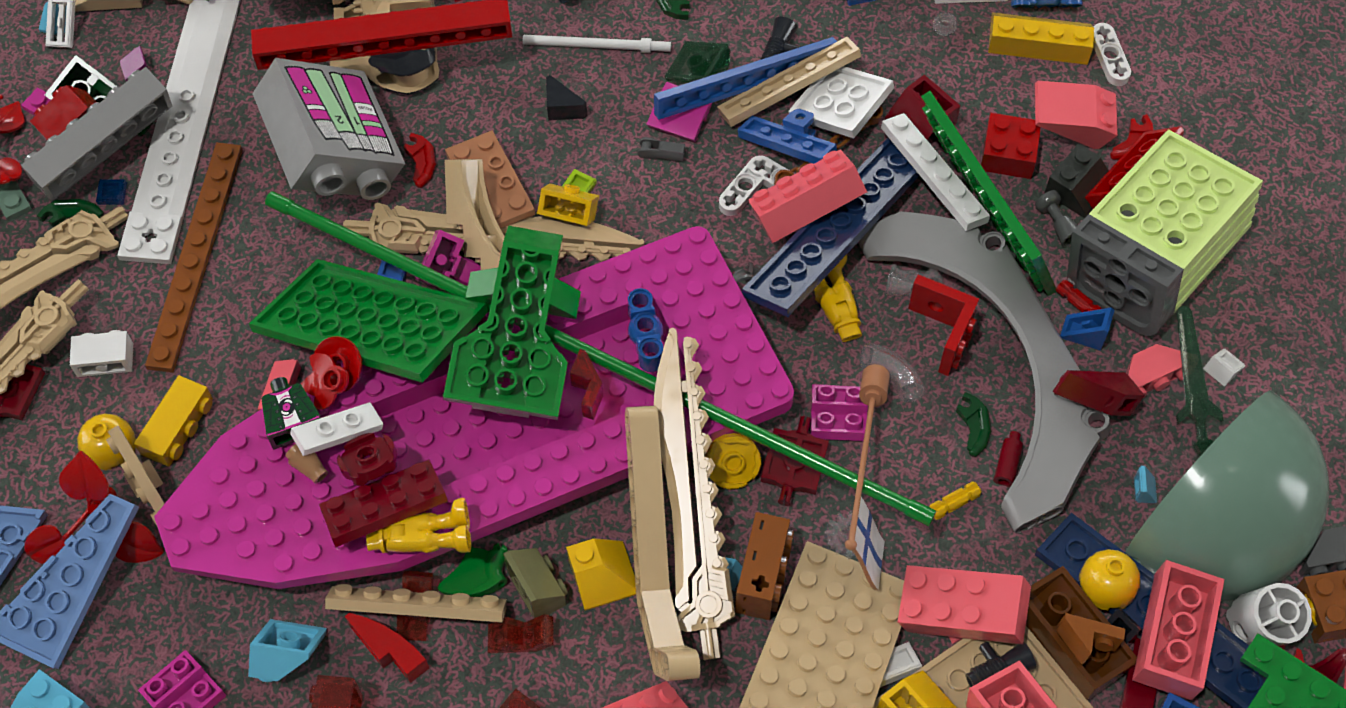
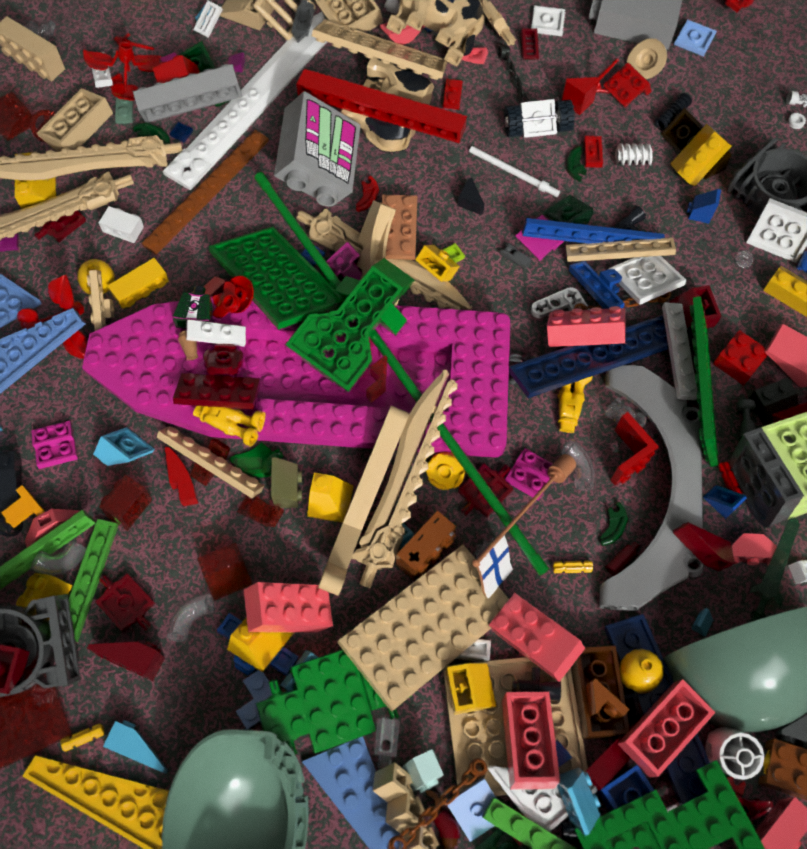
camera: 25 degrees right, 5 degrees up
(645, 318) = (433, 355): blue piece -> none

